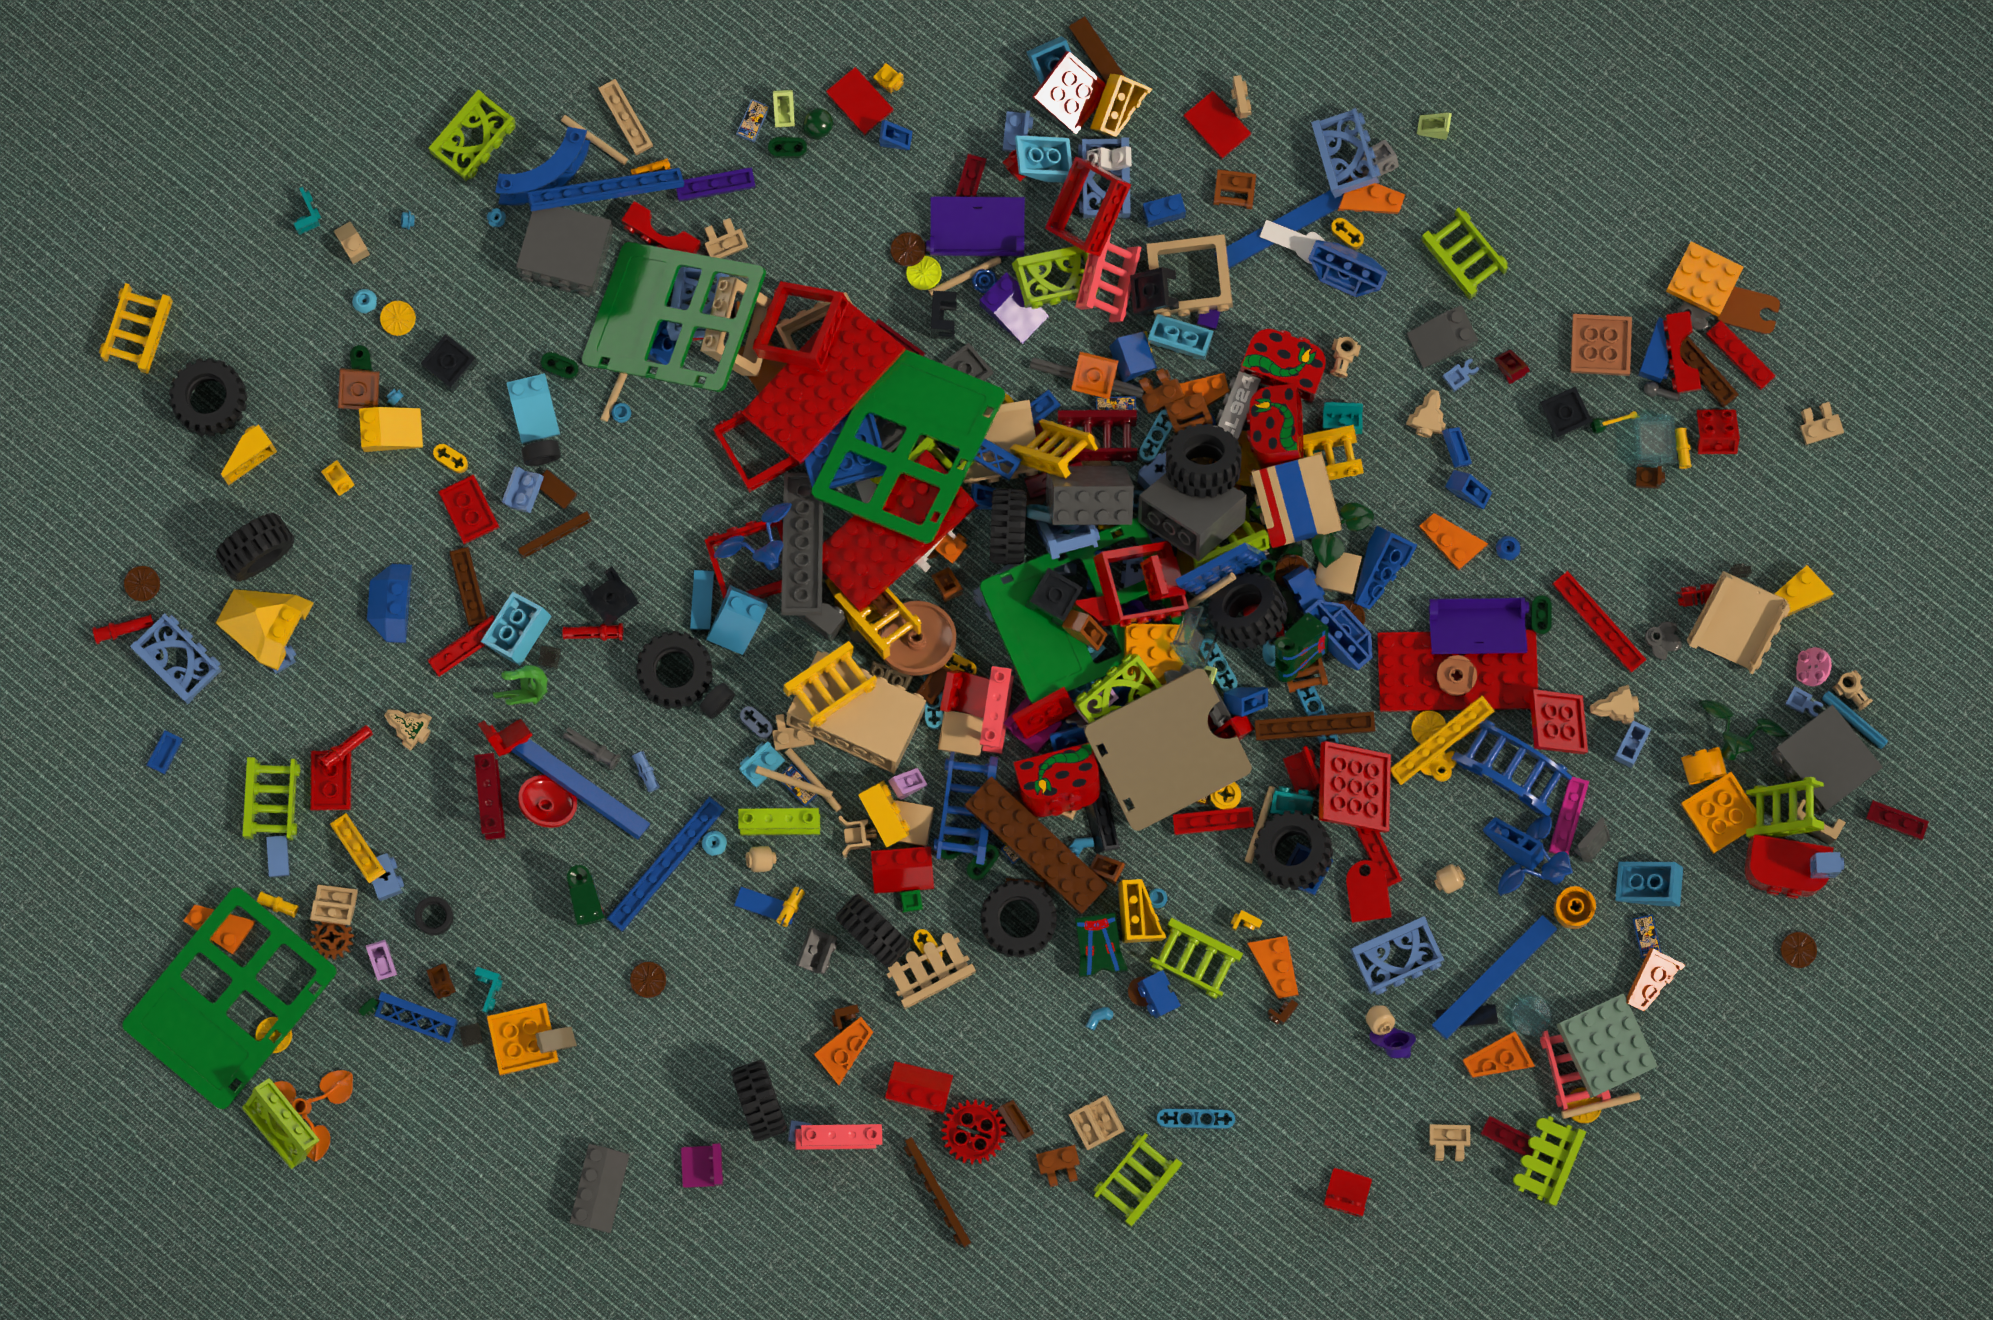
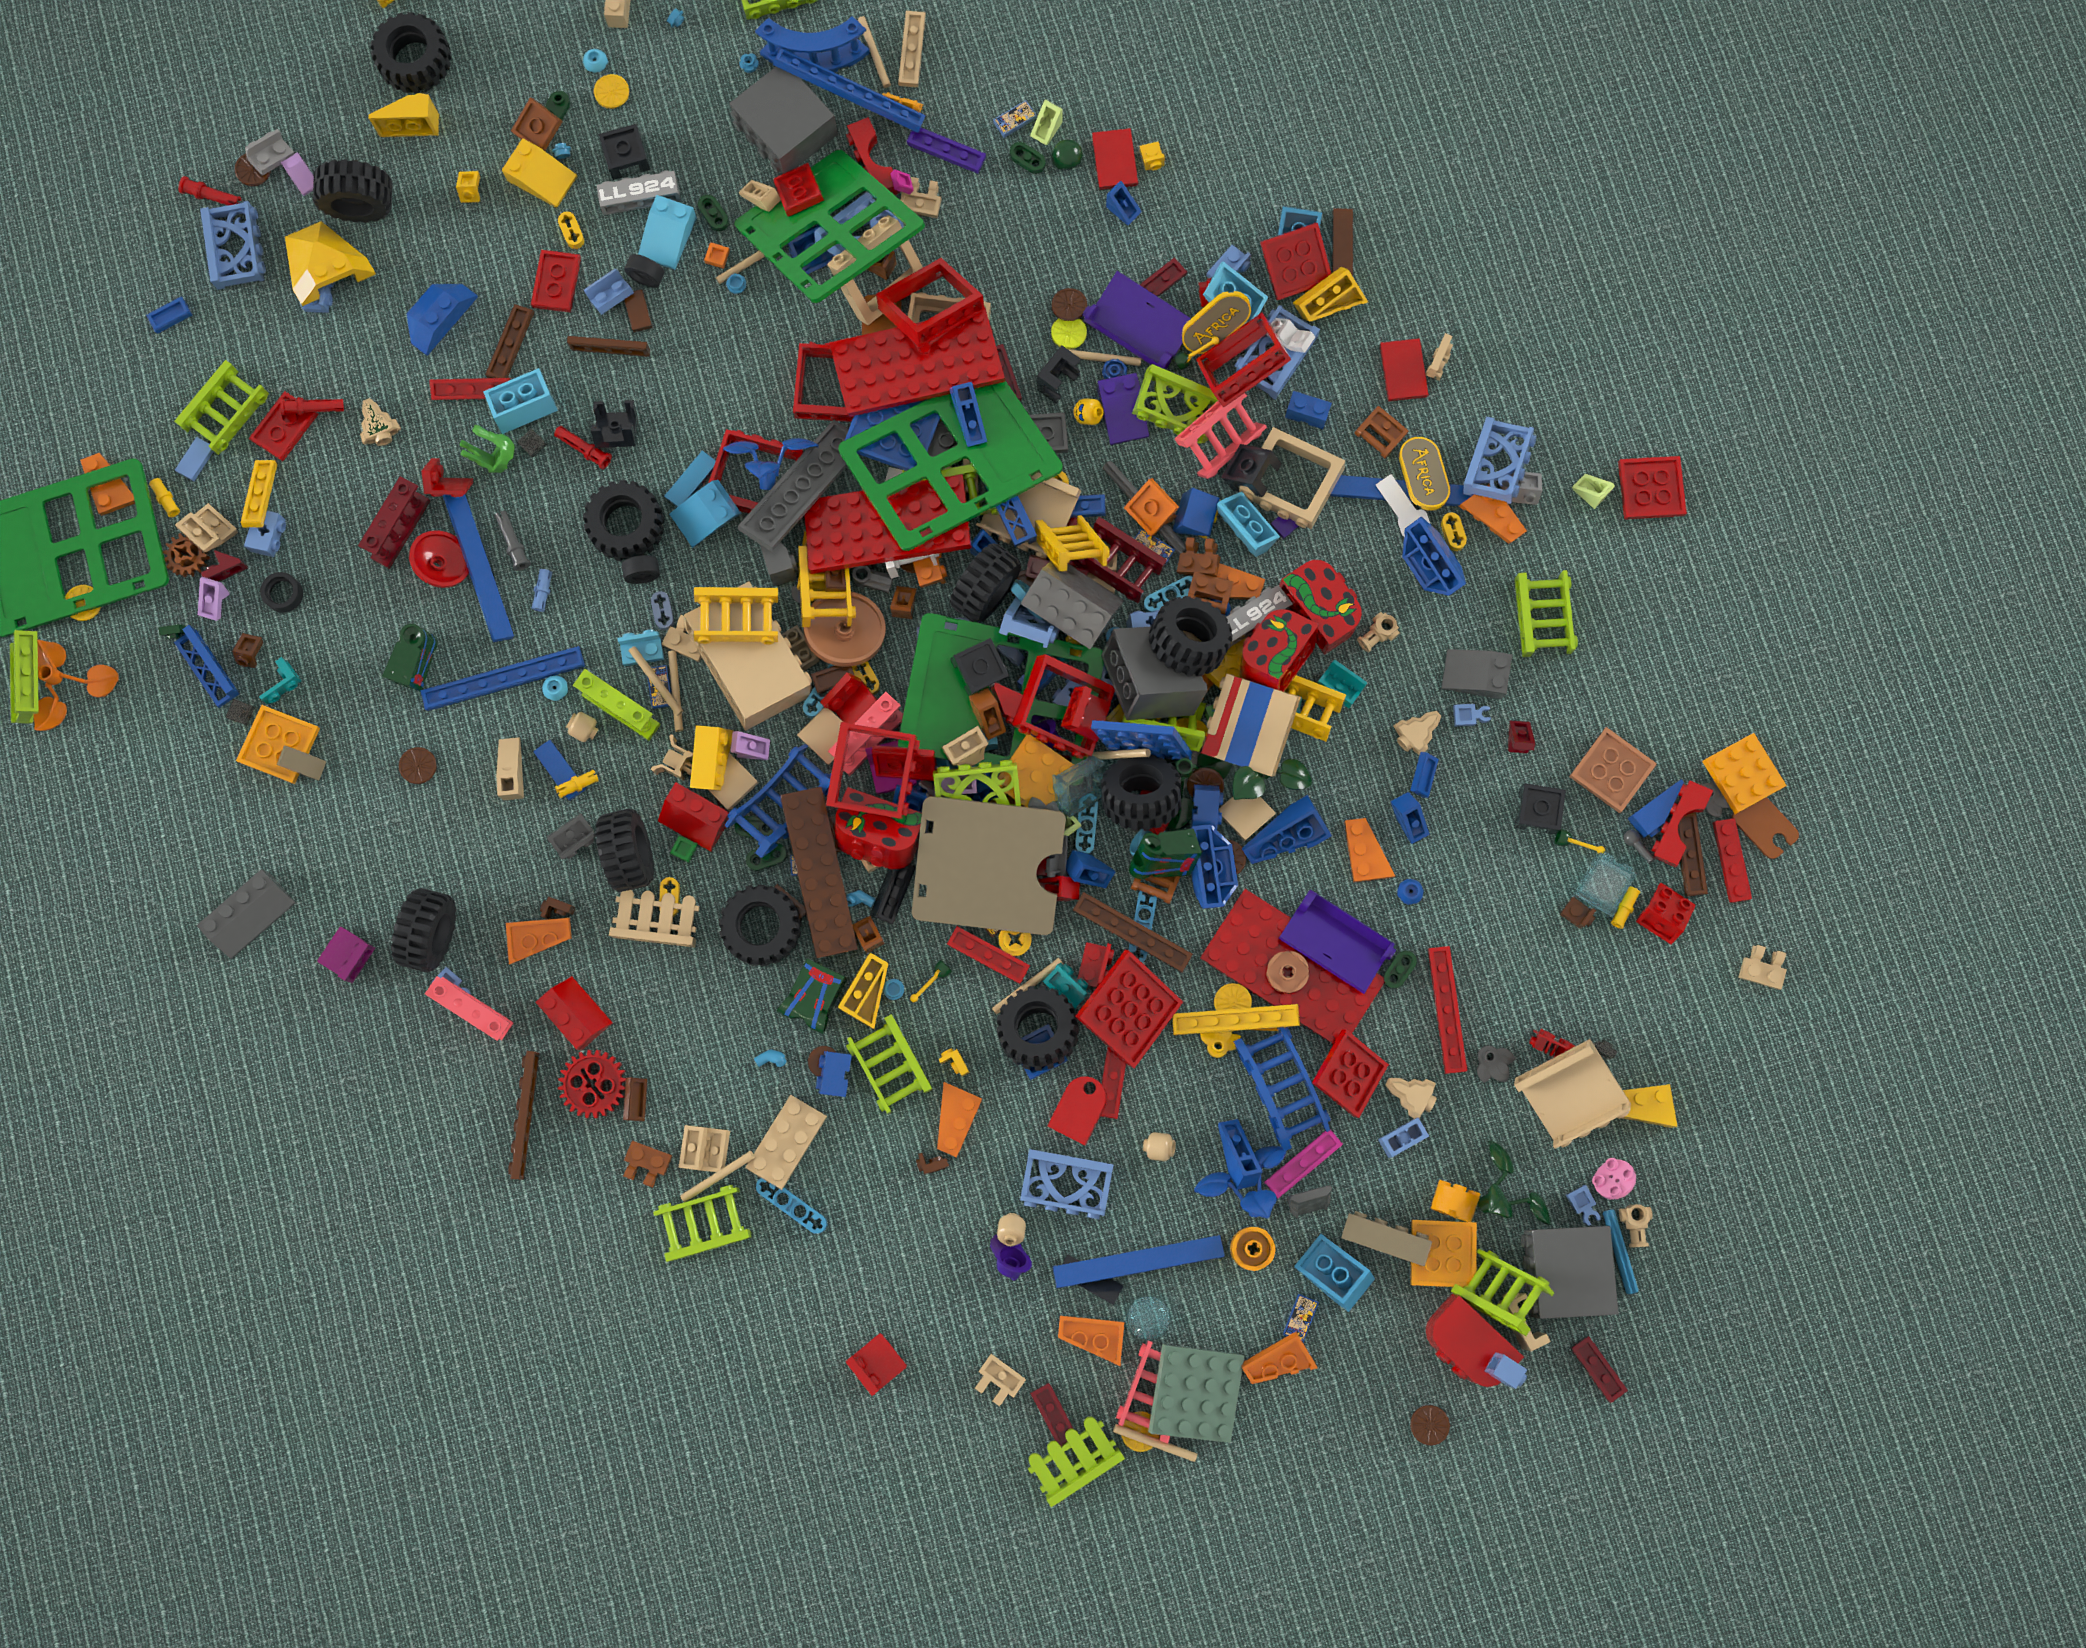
camera: 35 degrees right, 0 degrees up
(149, 561) = (268, 152): none -> light grey bracket
(186, 561) = (299, 173): none -> lavender slope
(374, 923) = (226, 568): none -> dark red slope
(485, 389) = (637, 192): none -> light grey brick
(588, 399) = (717, 255): none -> orange plate
(600, 325) = (762, 195): none -> tan slope
(619, 300) = (798, 189): none -> red tile
(702, 238) = (902, 181): none -> dark pink tile
(727, 931) = (509, 769): none -> tan slope
(898, 397) = (968, 413): none -> blue slope
(911, 582) = (875, 579): none -> dark grey piece
(988, 329) = (1088, 411): none -> yellow head
(1034, 234) = (1183, 359): none -> hinge
(1043, 188) = (1217, 319): none -> dark tan tile
(1055, 713) = (838, 766): none -> red window
(1087, 667) = (966, 748): none -> tan slope
(1123, 1135) = (717, 1176): none -> tan bar
(1158, 1073) = (786, 1142): none -> tan plate
(1184, 858) = (941, 970): none -> hinge
(1292, 201) = (1424, 473): none -> dark tan tile
(1480, 92) = (1652, 487): none -> red plate
(1672, 830) = (1387, 1239): none -> dark tan brick

